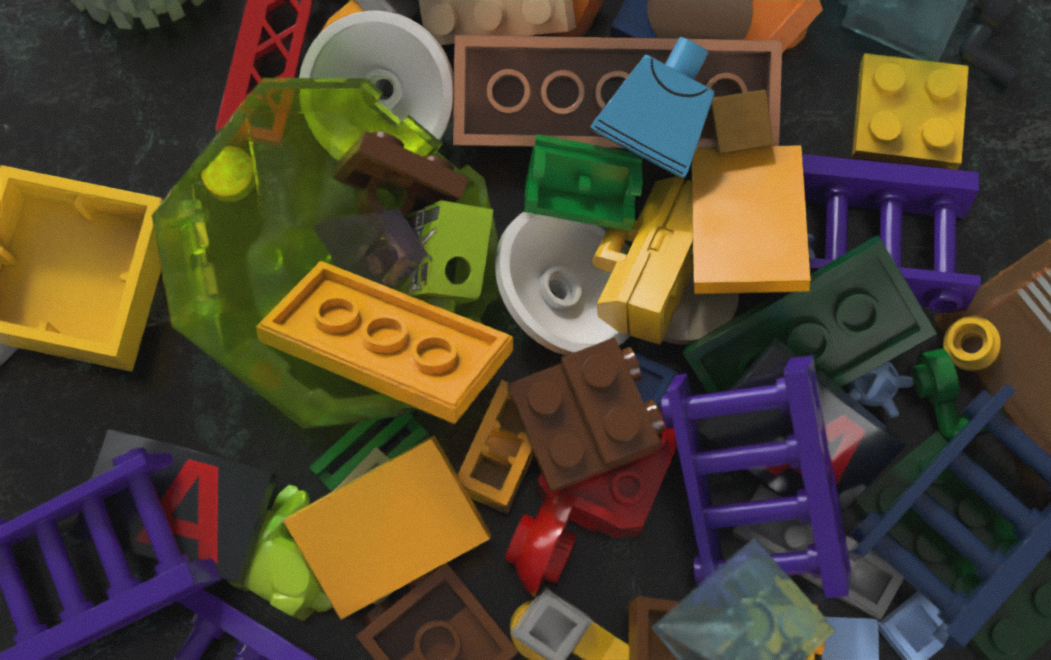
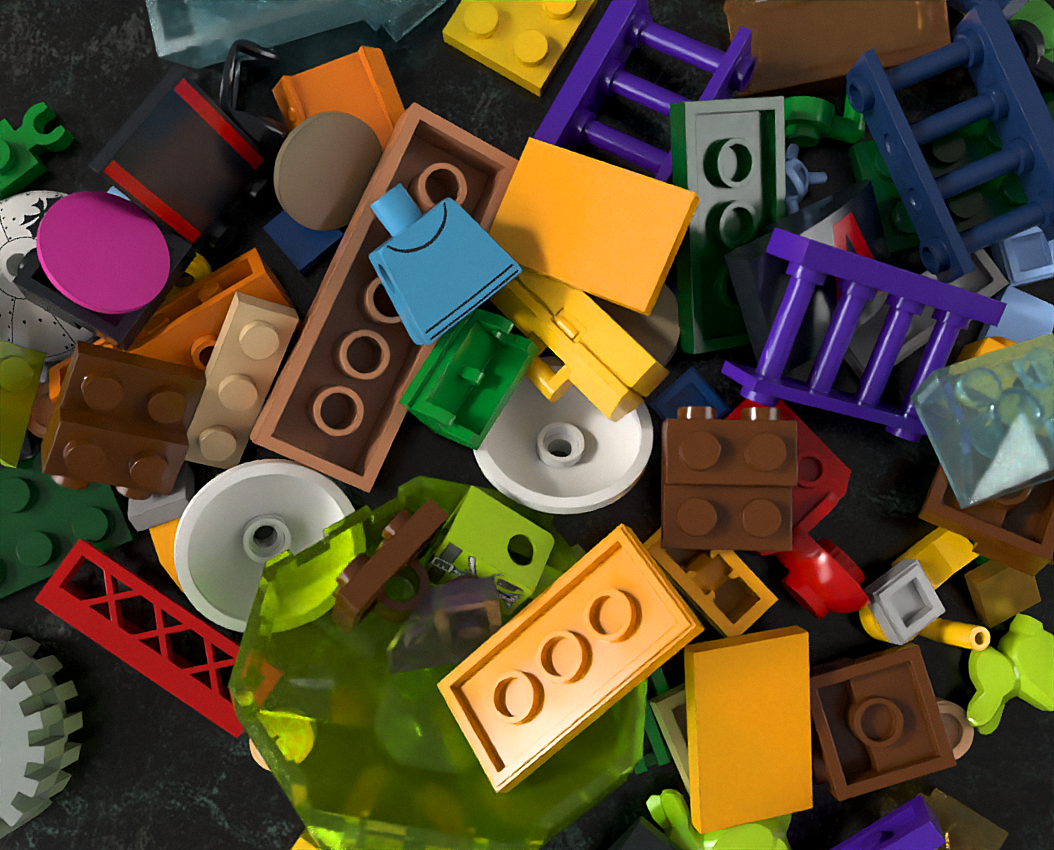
camera: 70 degrees left, 10 degrees up
(741, 122) = (483, 184): pearl gold tile -> none
(972, 327) = (806, 54): yellow plate -> none

